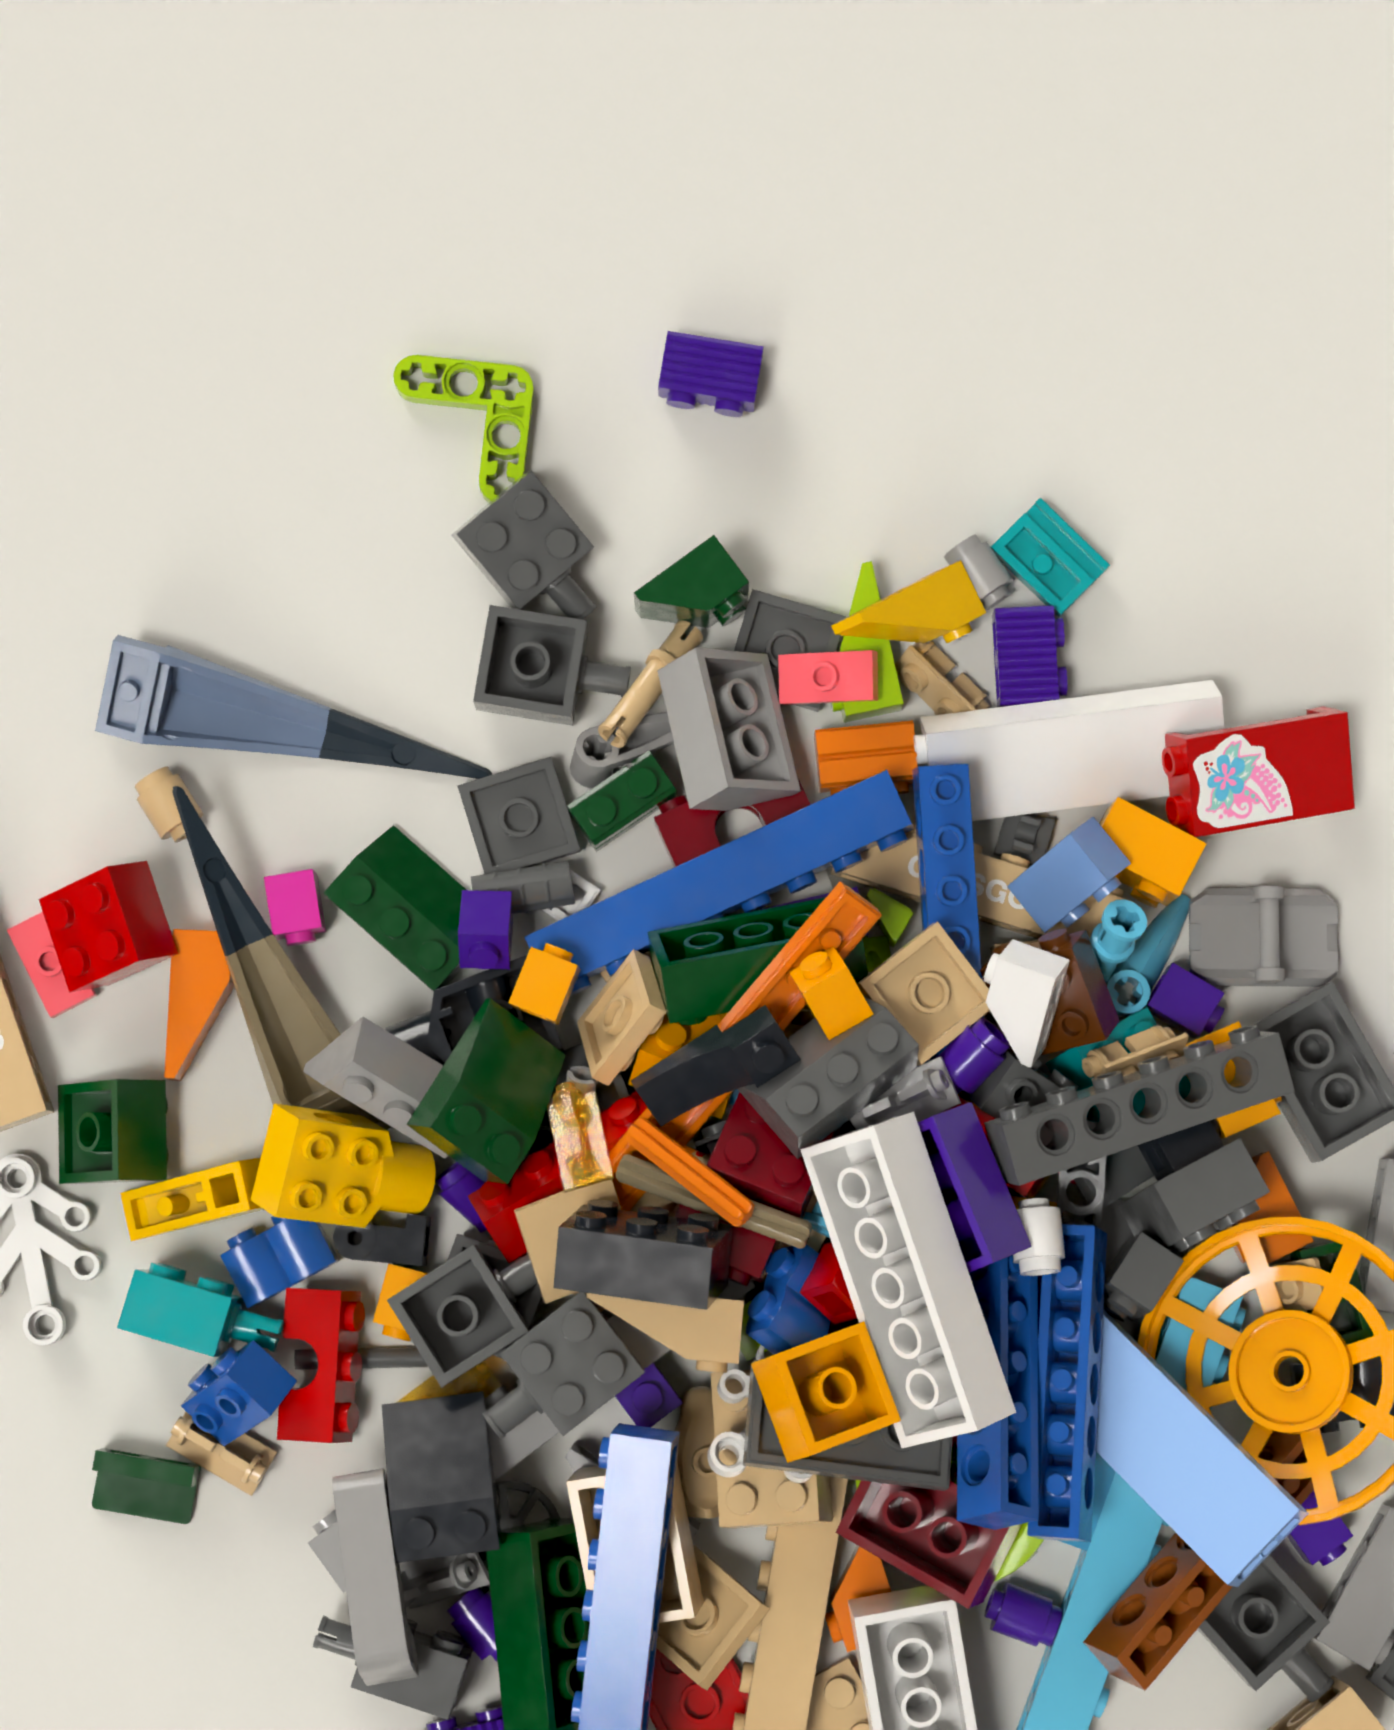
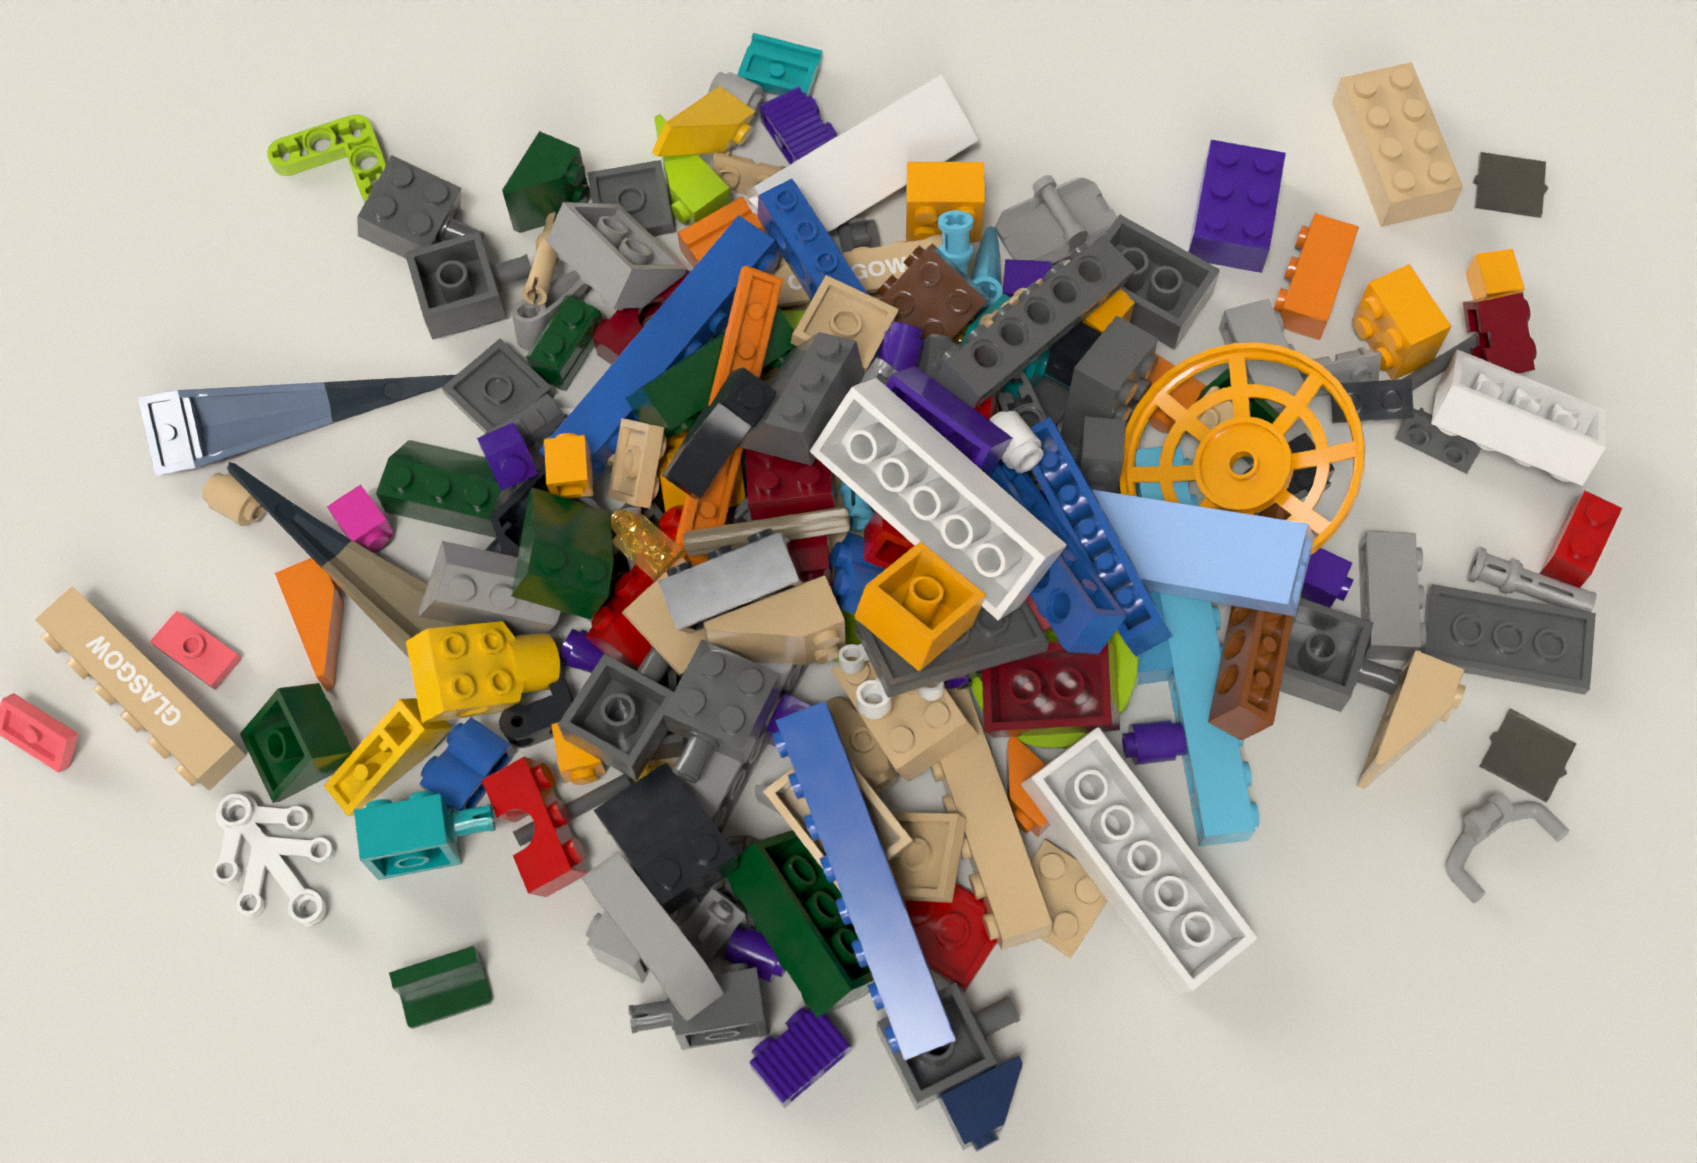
camera: 25 degrees left, 15 degrees down
(108, 926) = (223, 593): red brick -> none
(237, 1392) = (479, 871): blue brick -> none
(238, 1463) = (489, 930): tan hinge -> none
(690, 1172) = (738, 514): orange axle -> none
(710, 373) = (489, 60): dark purple brick -> none
(828, 677) = (668, 193): coral plate -> none
(831, 992) = (774, 342): light orange brick -> none
(1025, 996) = (914, 291): white slope -> none
(1070, 874) = (902, 221): medium blue brick -> none
(1259, 773) = (993, 111): red panel -> none

